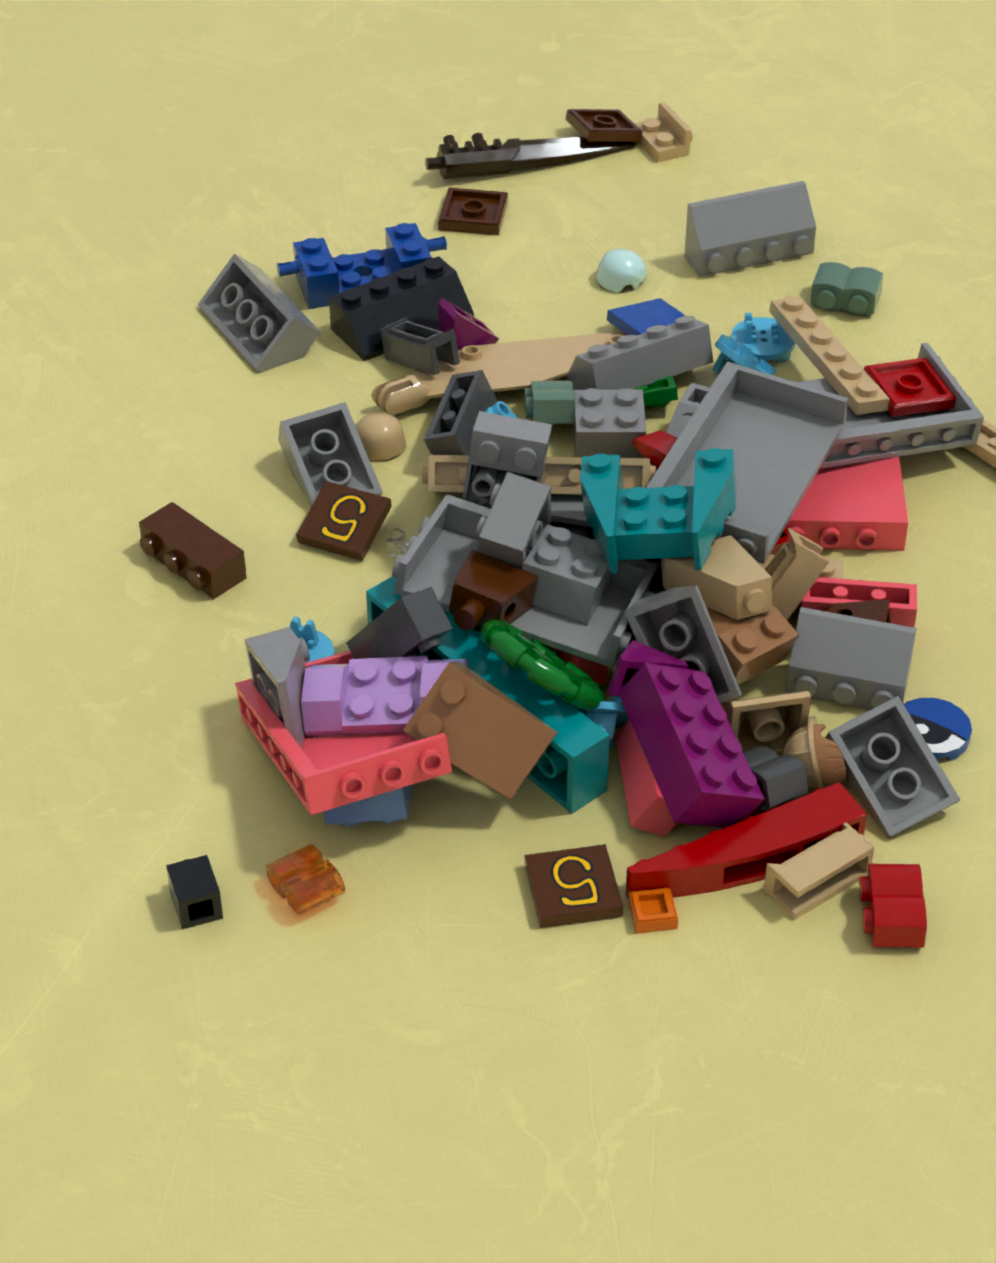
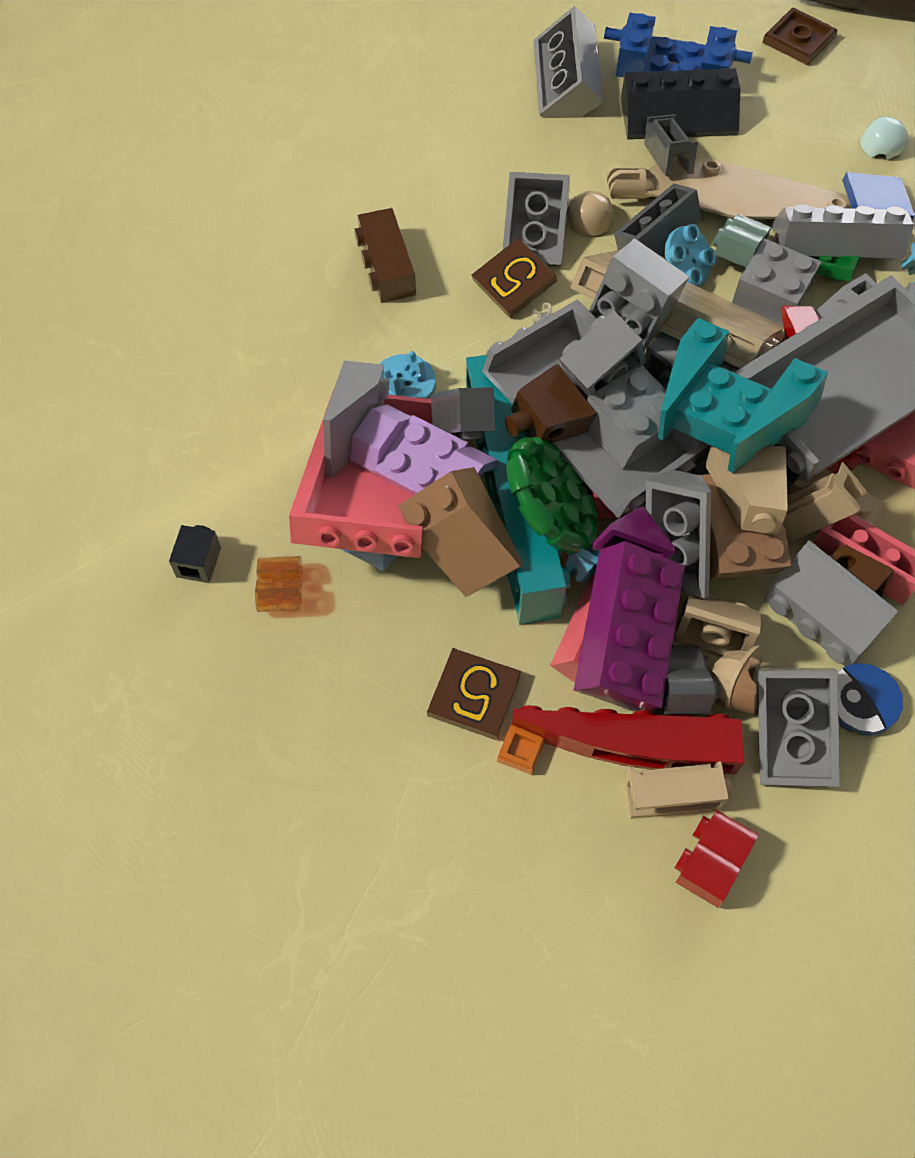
camera: 30 degrees right, 20 degrees up
(466, 327) = (718, 141): magenta slope -> none

